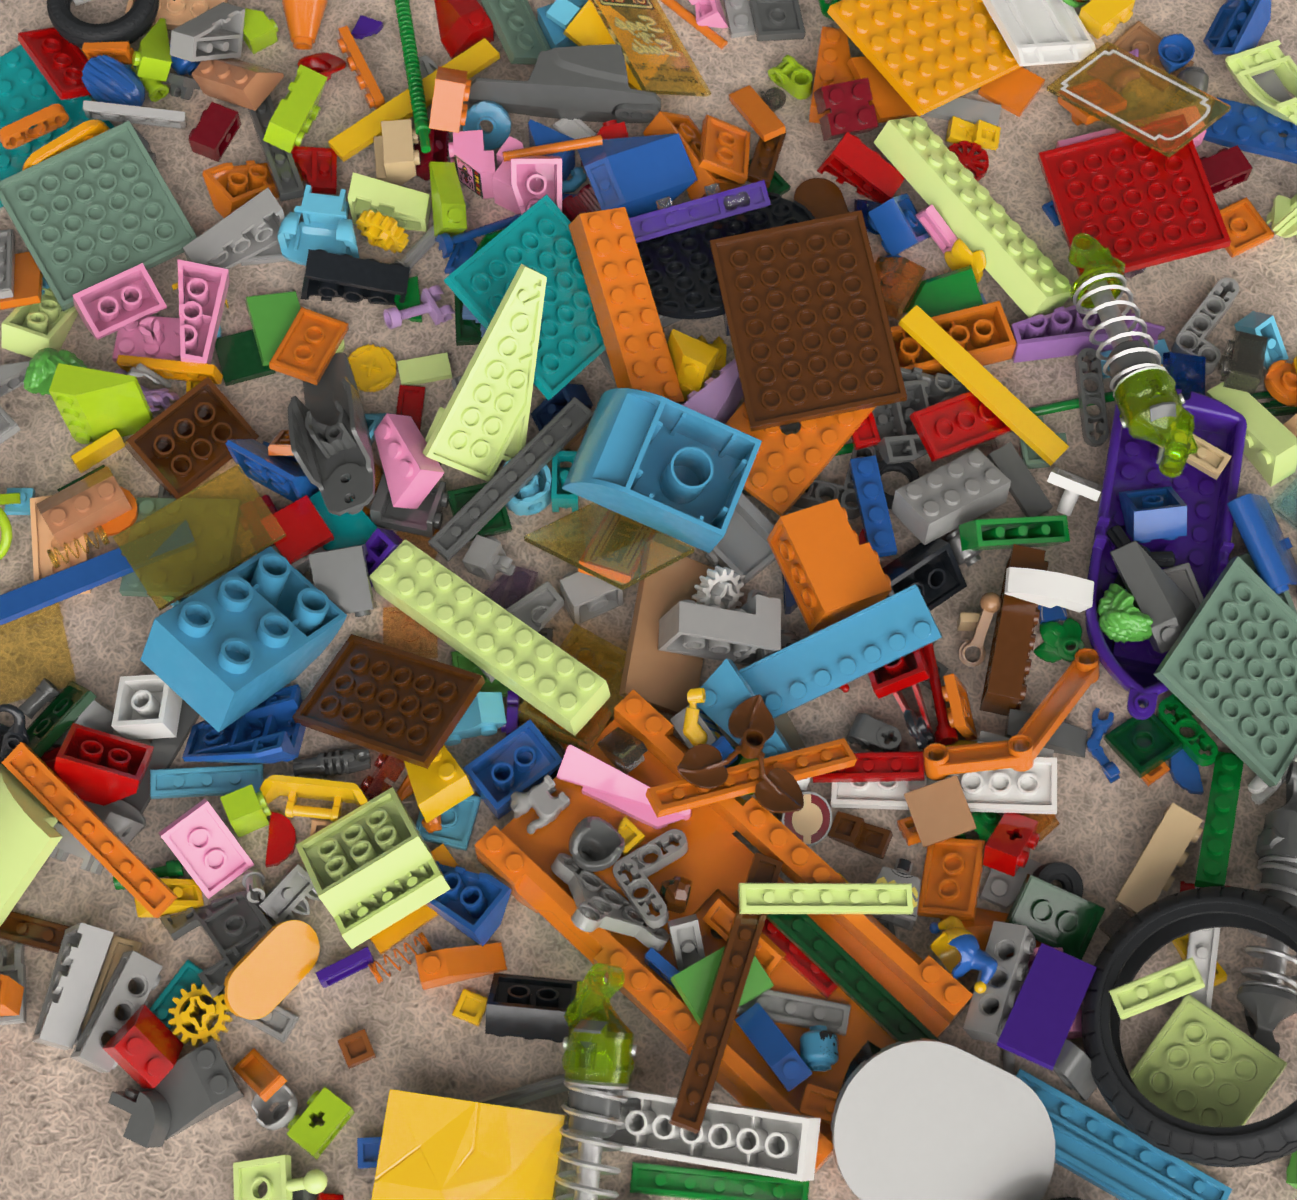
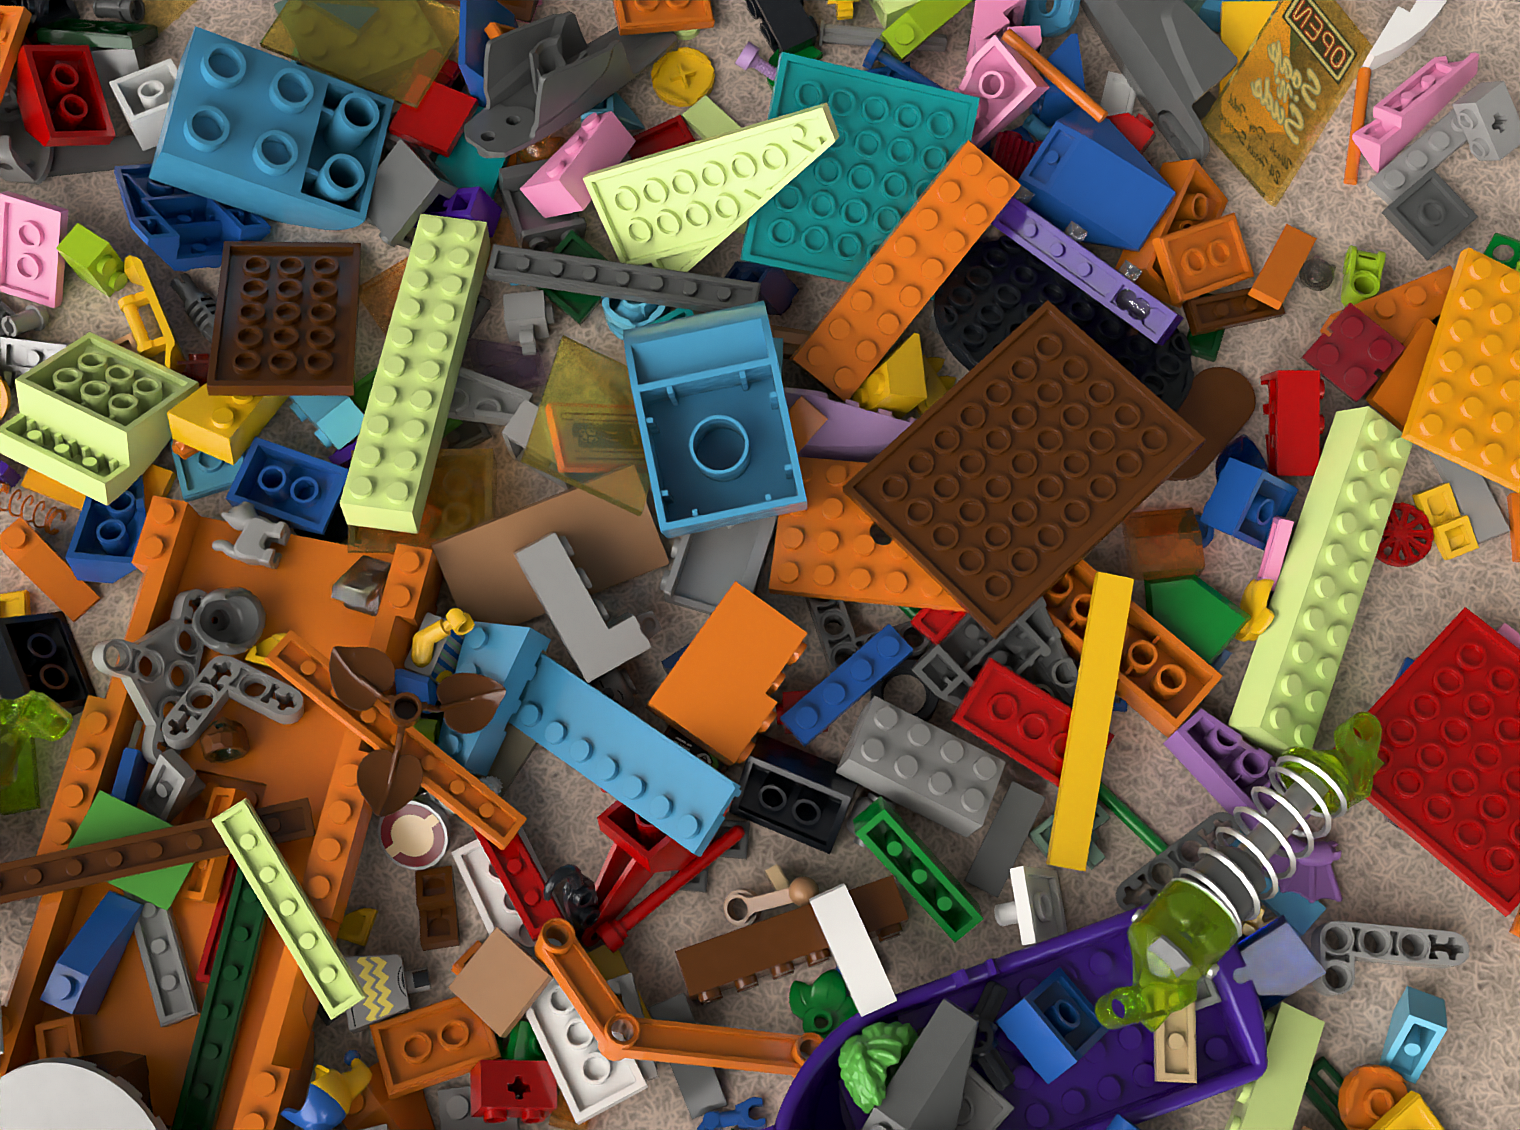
camera: 60 degrees right, 5 degrees up
(203, 780) = (105, 195): medium azure tile -> none
(281, 840) = (94, 317): red tile -> none
(613, 788) = (314, 588): bright pink wedge -> none
(719, 588) = (626, 579): white gear -> none
(819, 1048) = (120, 1005): dark azure head -> none
(872, 733) = (565, 846): dark grey piece -> none
(960, 711) = (652, 932): orange hinge -> none
(1243, 362) = (1350, 1026): clear smoke brick -> none

